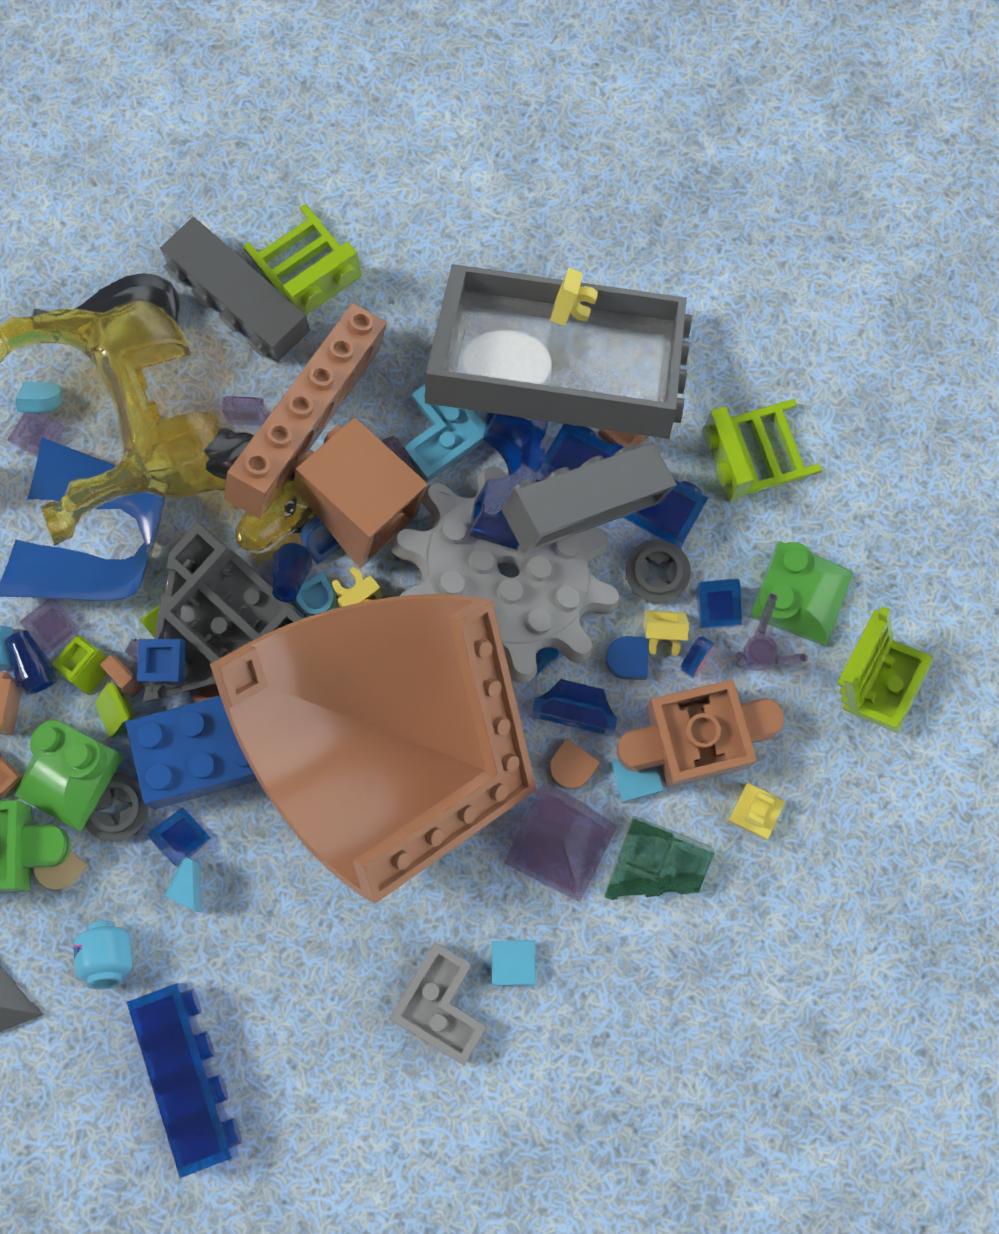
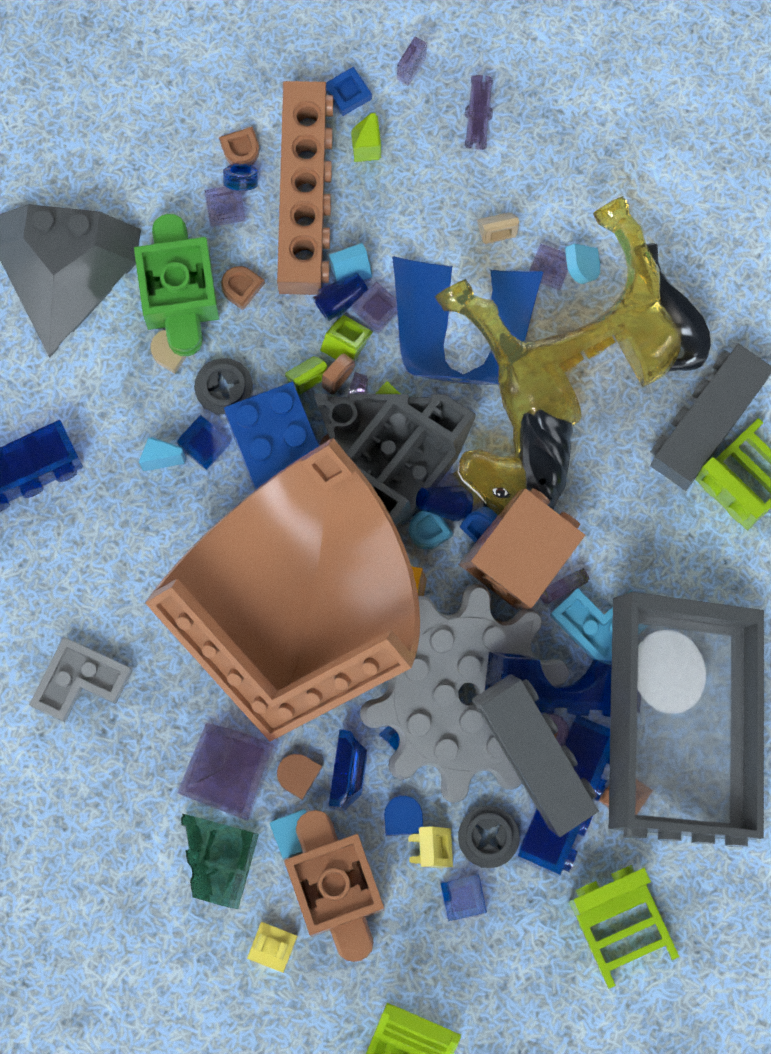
camera: 85 degrees right, 0 degrees up
(67, 773) = (248, 342): bright green slope -> none
(102, 955) = (98, 395): medium azure head -> none
(161, 661) = (348, 402): blue tile -> none
(244, 410) = (594, 442): clear purple tile -> none
(304, 411) = (594, 493): nougat brick -> none
(362, 590) = (434, 569): light yellow tile -> none
(513, 962) = (119, 739): medium azure tile -> none
(569, 299) = (741, 726): light yellow tile -> none
(697, 656) = (409, 879): clear blue tile -> none
(761, 649) = (422, 939): clear purple plant -> none
(807, 592) = (484, 977): bright green slope -> none

